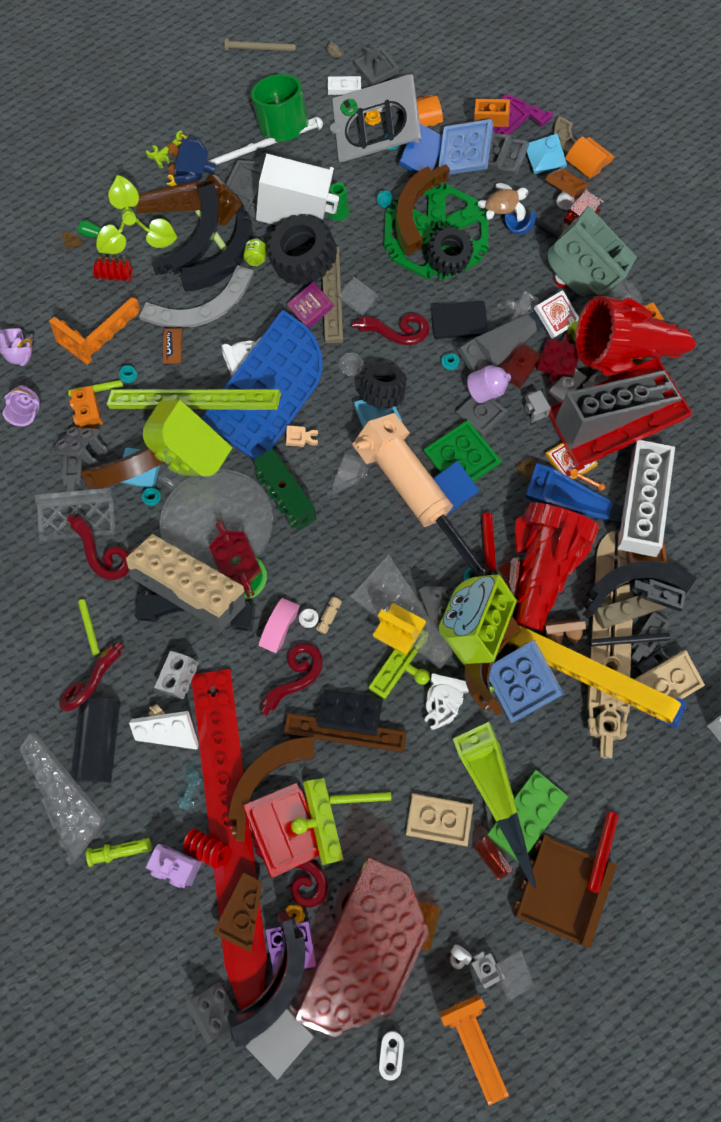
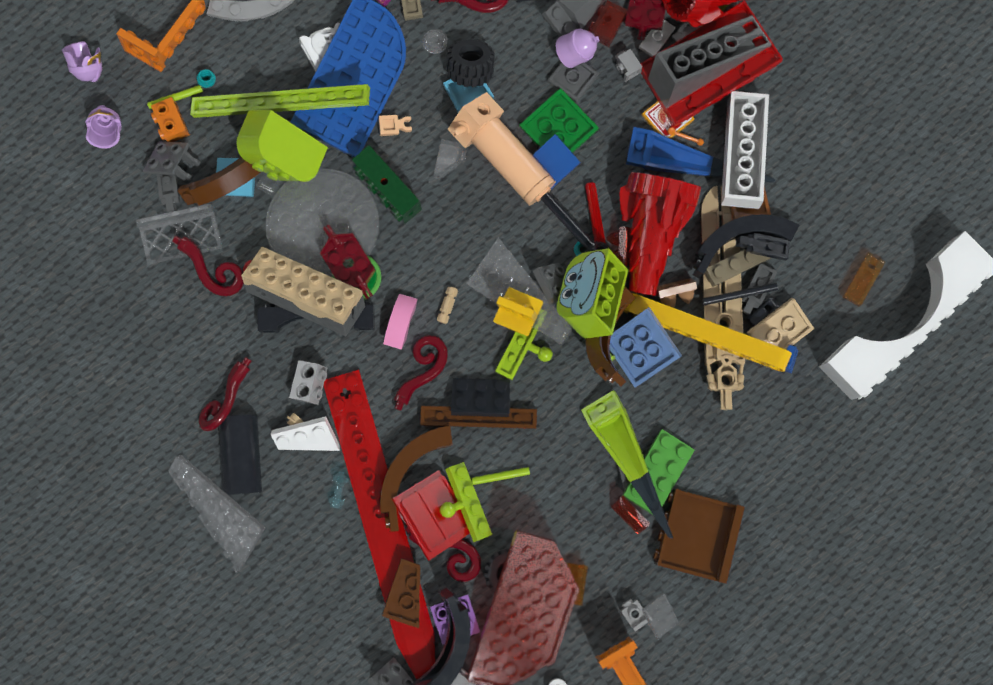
camera: 10 degrees left, 10 degrees up
(88, 627) = (213, 345): lime bar -> none
(109, 852) = (272, 557): lime pin -> none
(151, 491) = (246, 206): teal plate -> none
(172, 346) = (247, 42): dark orange slope -> none
(173, 865) = (335, 560): lavender hinge -> none
(206, 849) = (363, 542): red piece -> none
(298, 910) = (455, 584): light orange plate -> none
(308, 618) = (428, 310): white plate -> none
(439, 820) = (577, 486): tan tile -> none
(447, 365) = (535, 31): teal plate -> none
(447, 697) = (571, 371): white piece -> none
(462, 955) = (610, 604): white tile -> none
(527, 468) = (625, 132): clear orange tile -> none
(603, 852) = (731, 496): red axle -> none

